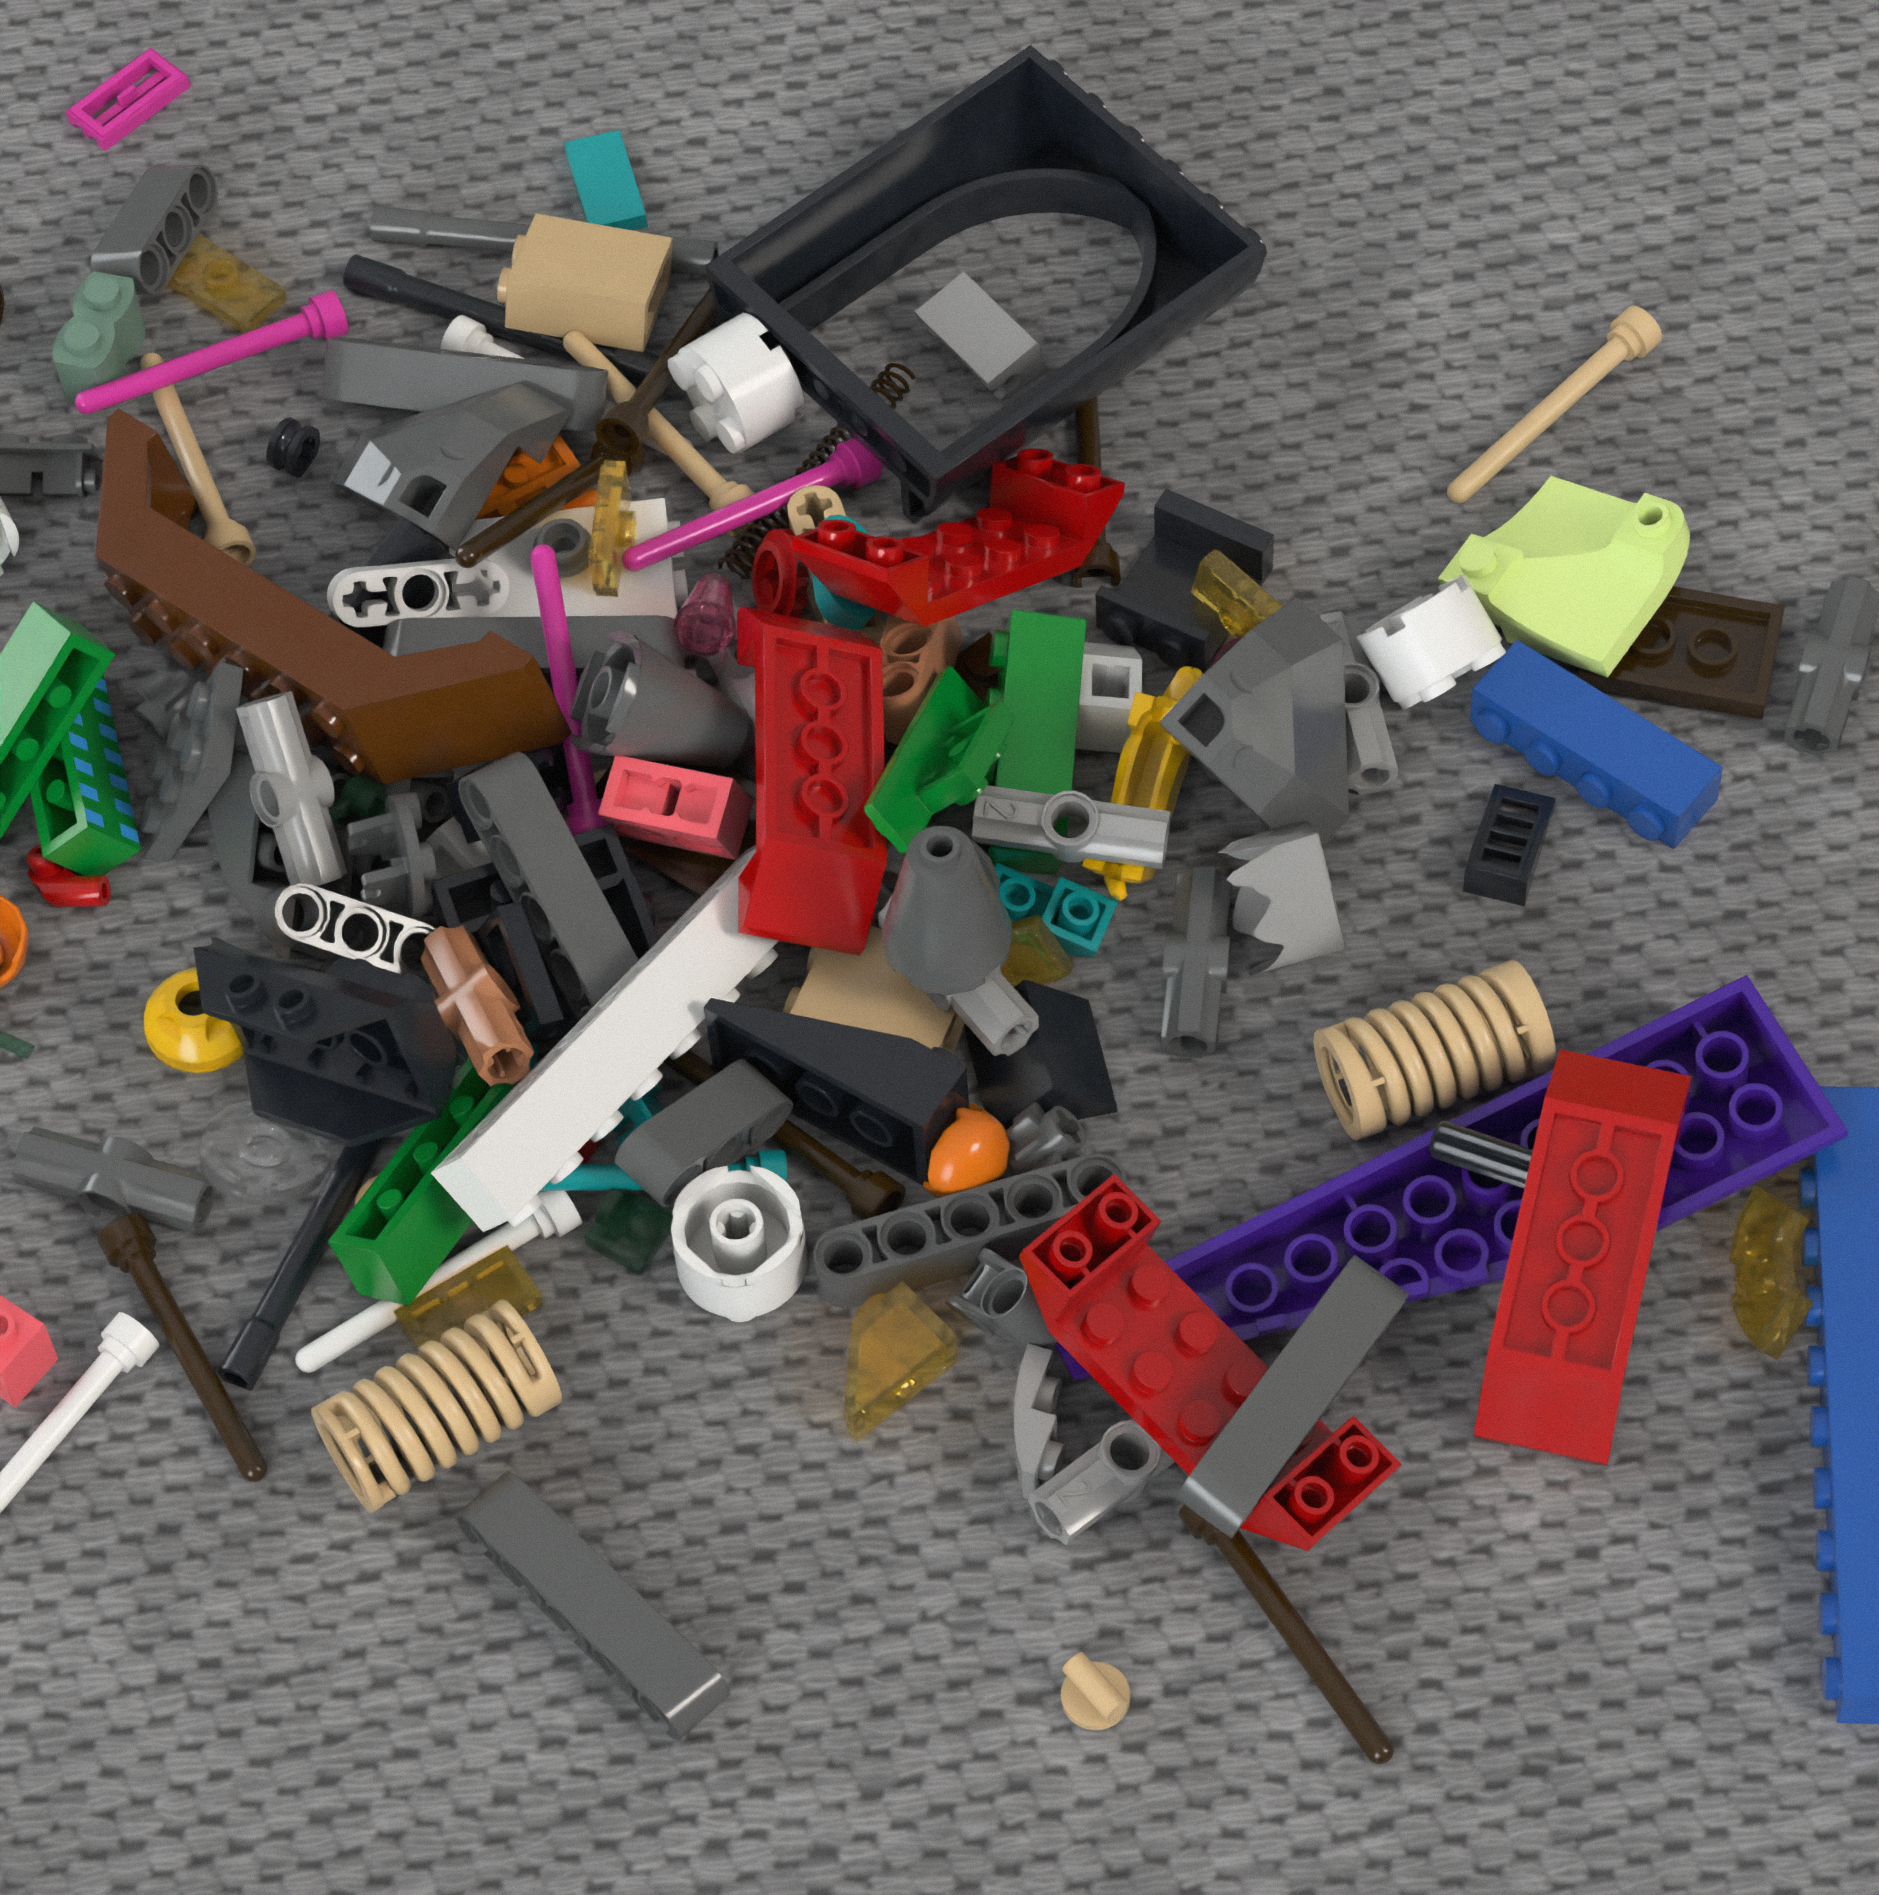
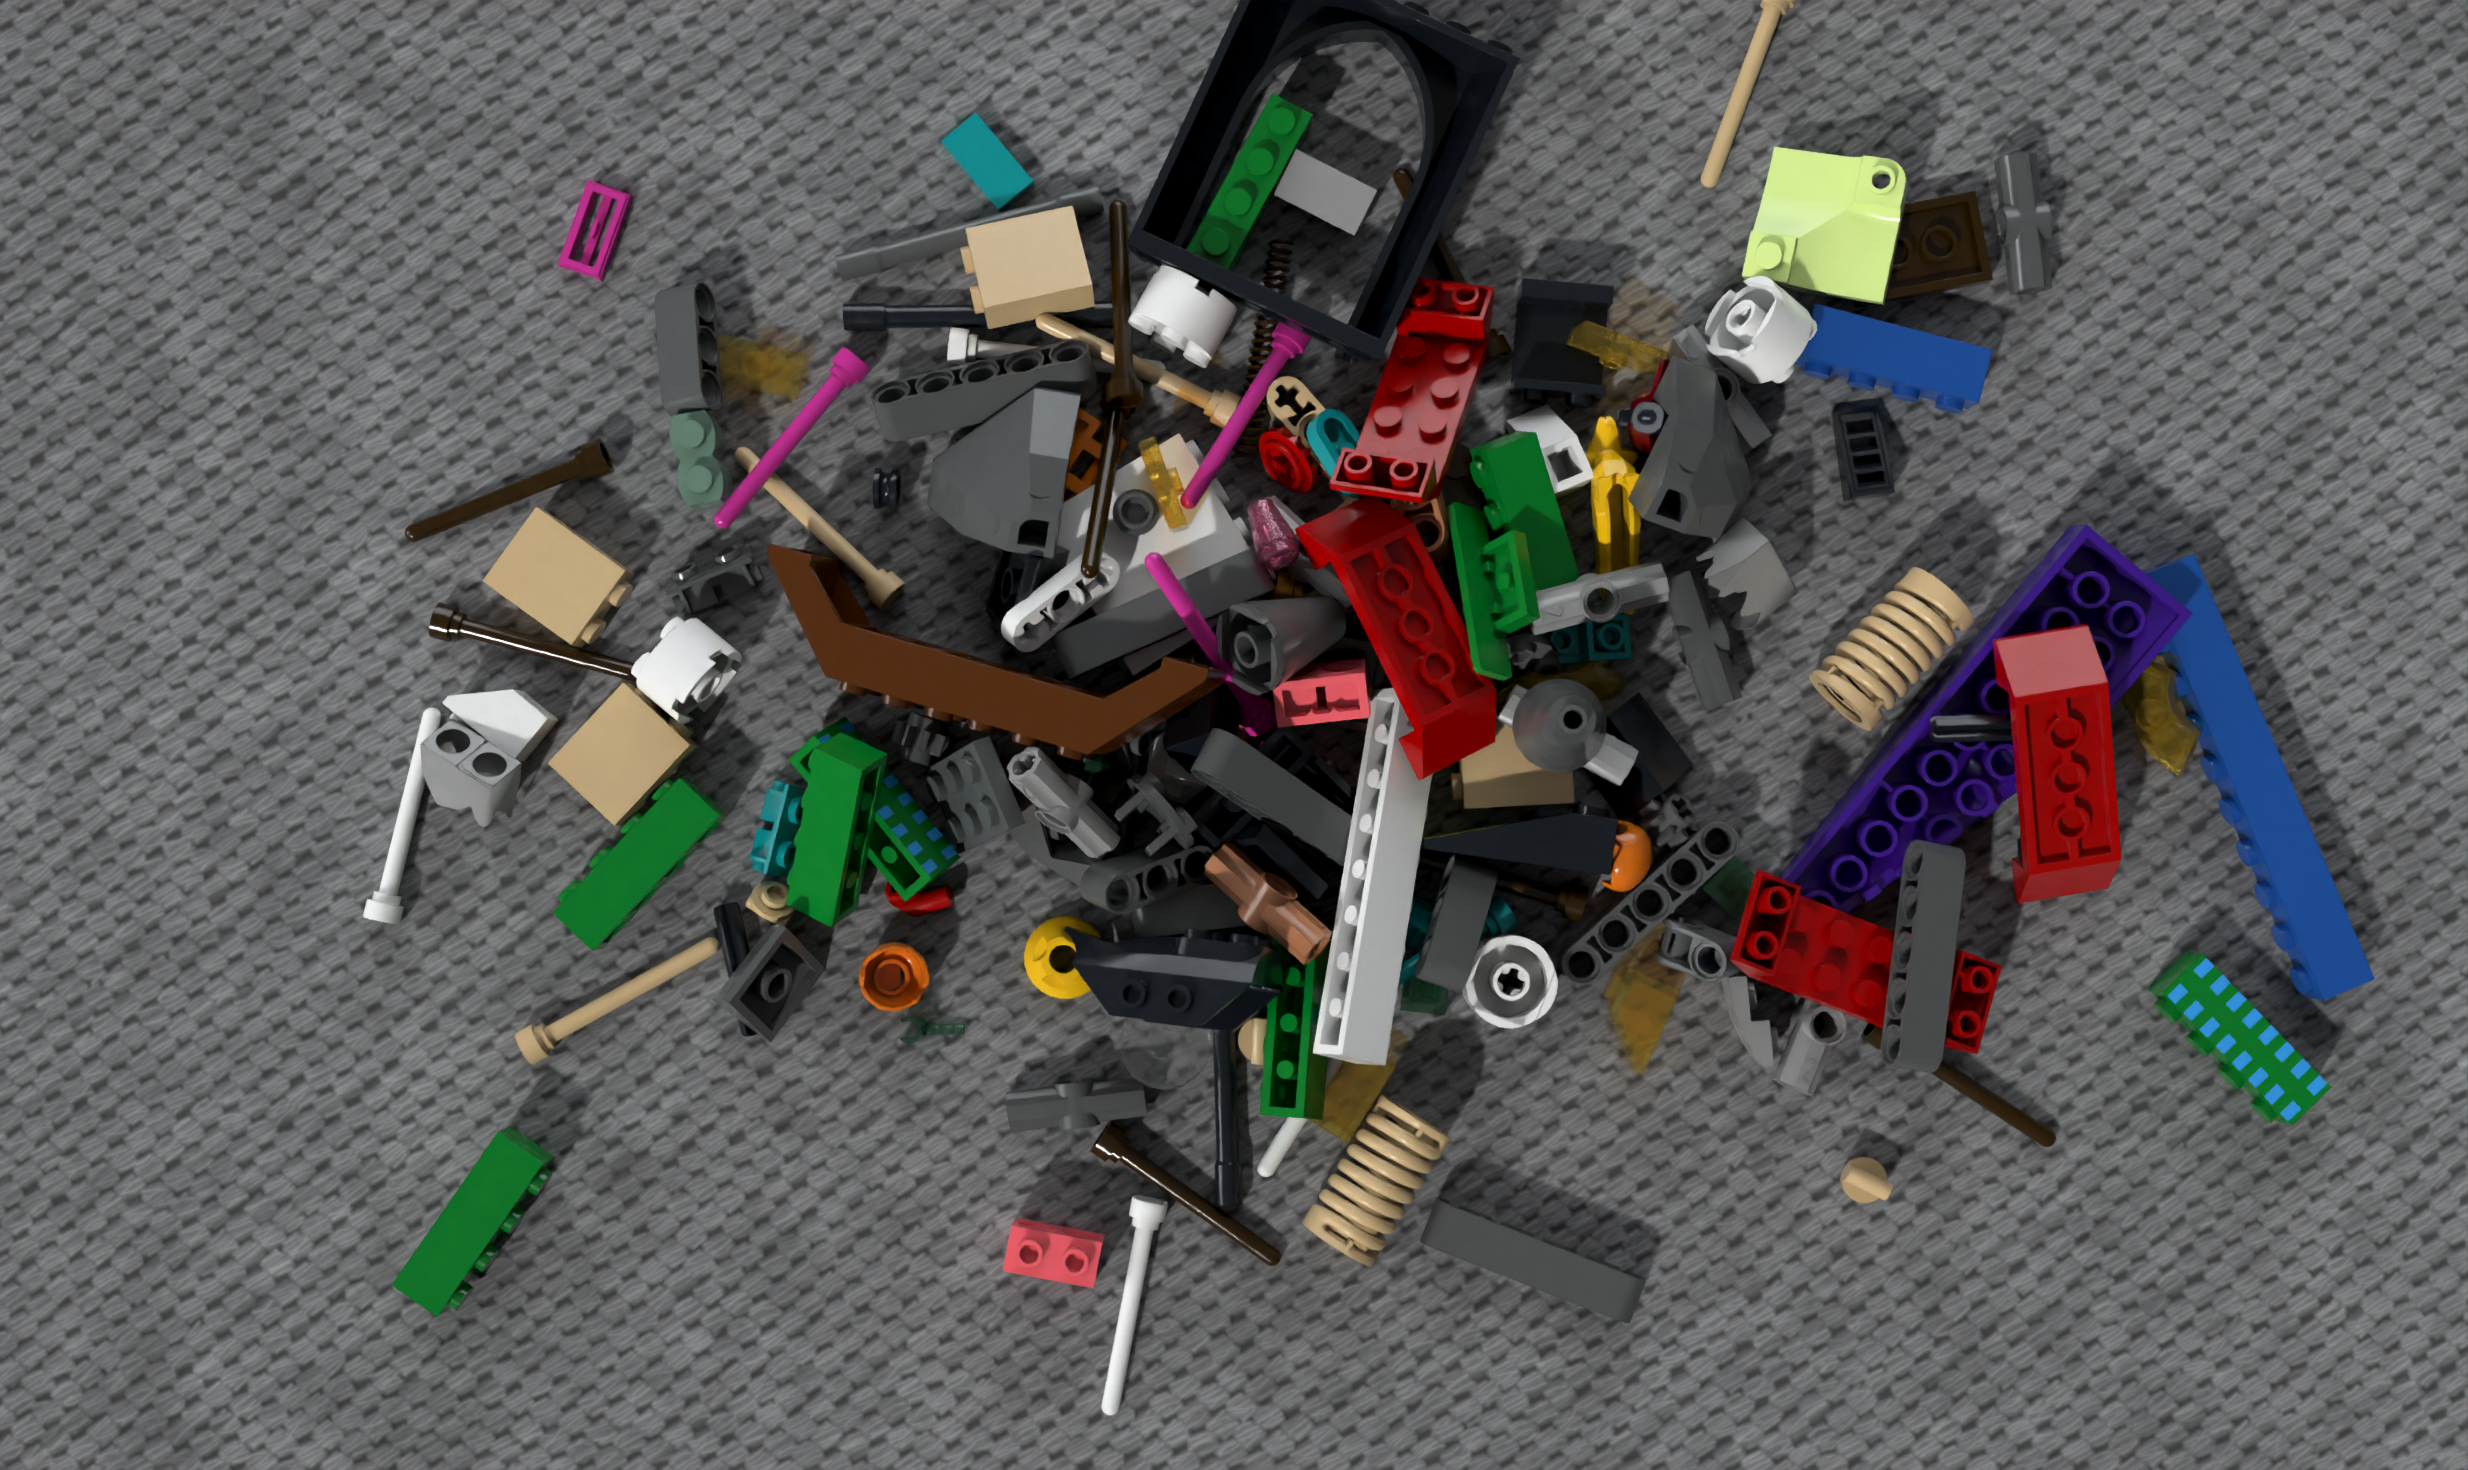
camera: 30 degrees left, 30 degrees up
(876, 304) = (1251, 183): none -> green brick
(1707, 1719) = (2238, 1038): none -> green brick

